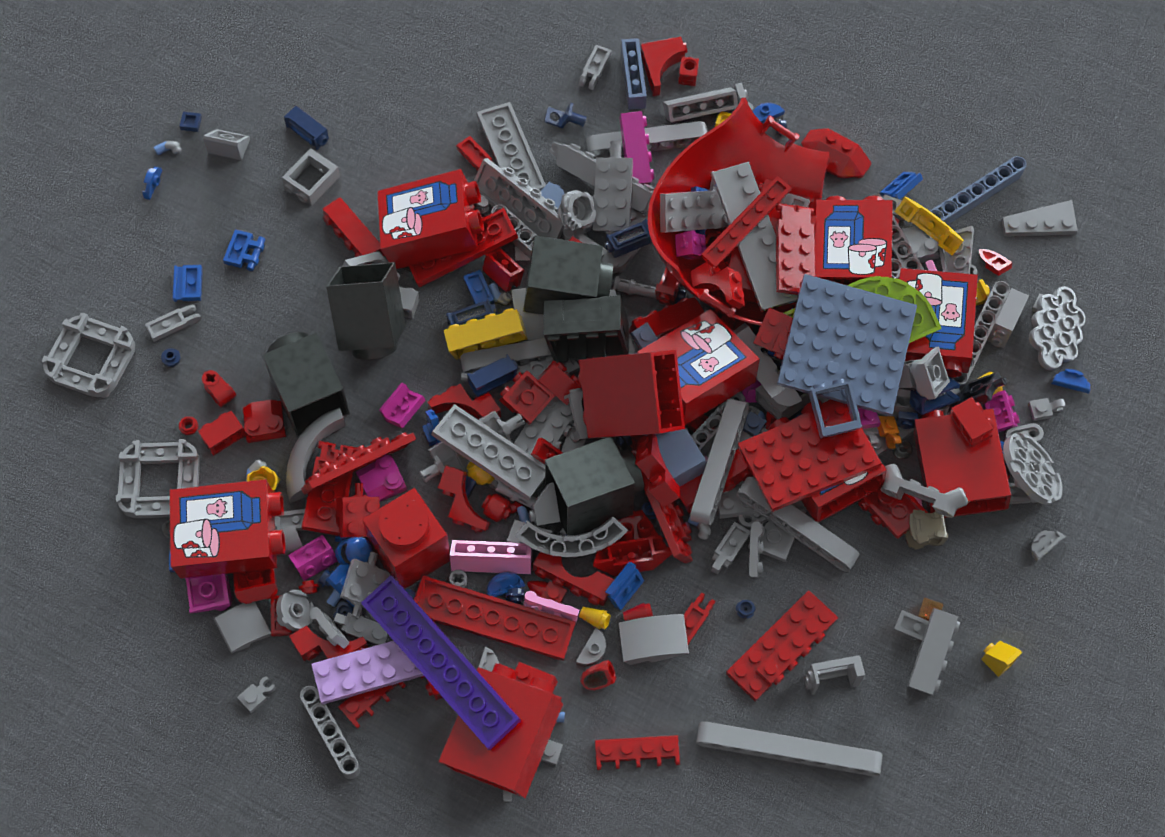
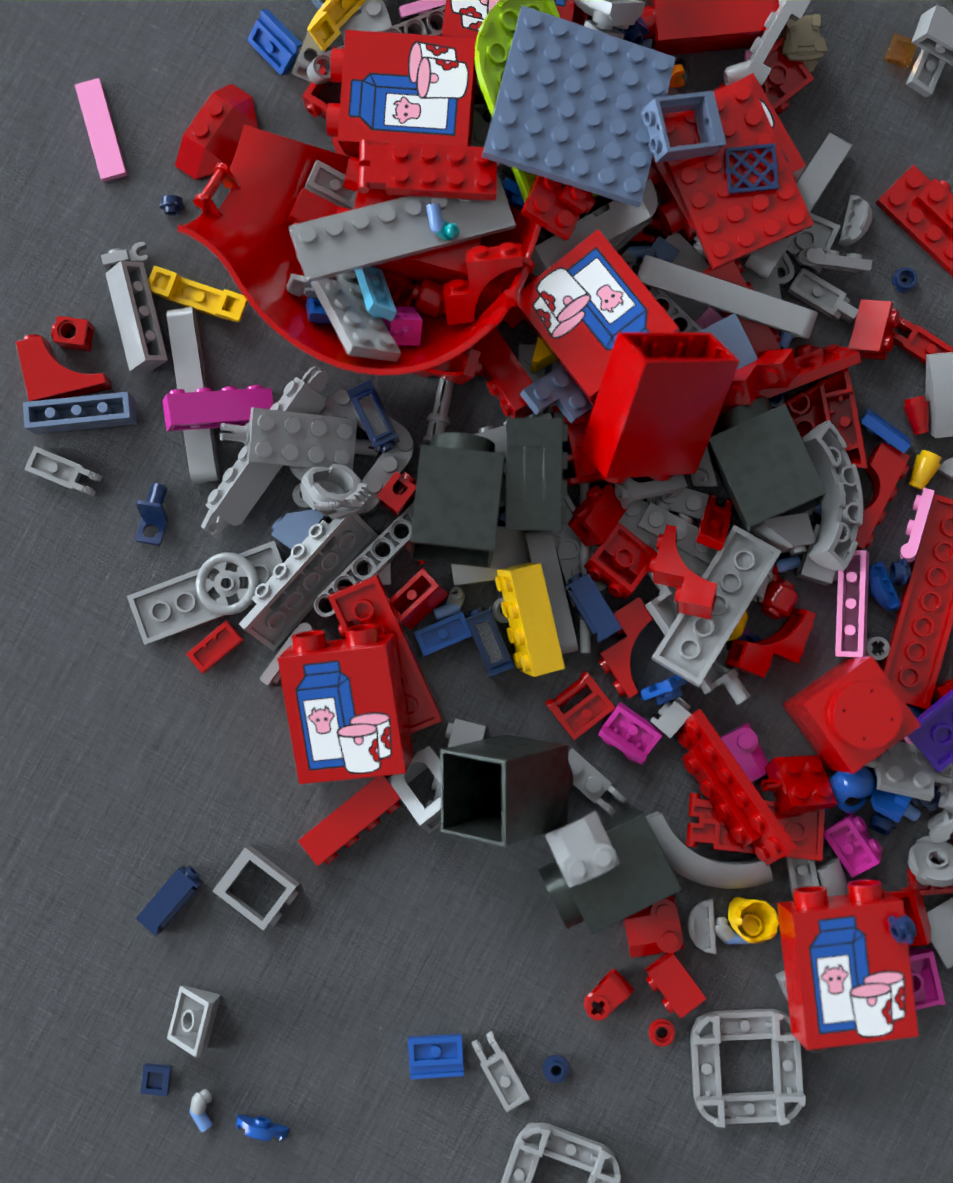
camera: 85 degrees left, 20 degrees up
(238, 249) = (379, 985): blue plate -> none
(248, 549) = (902, 929): none -> dark blue plate
(260, 451) = (702, 926): none -> light grey plate
(309, 587) = (897, 846): red plate -> none
(321, 347) = (582, 849): none -> light grey slope
(370, 382) = (591, 781): none -> light grey hinge
(410, 426) = (672, 716): none -> light grey brick
(419, 379) = (586, 712): none -> red plate
(519, 420) = (693, 593): none -> red arch
(531, 152) = (221, 605): none -> light grey plate
(547, 590) = (888, 532): red plate -> none
(703, 579) = (874, 329): none -> red brick
(708, 224) = (376, 293): none -> medium azure plate
(746, 222) = (392, 232): red plate -> none
(755, 255) = (439, 226): none -> arm
(766, 109) = (145, 227): blue plate -> none
(791, 574) = (856, 220): none -> light grey plate
(812, 477) = (750, 149): none -> dark blue window
(832, 87) = (101, 130): none -> bright pink tile

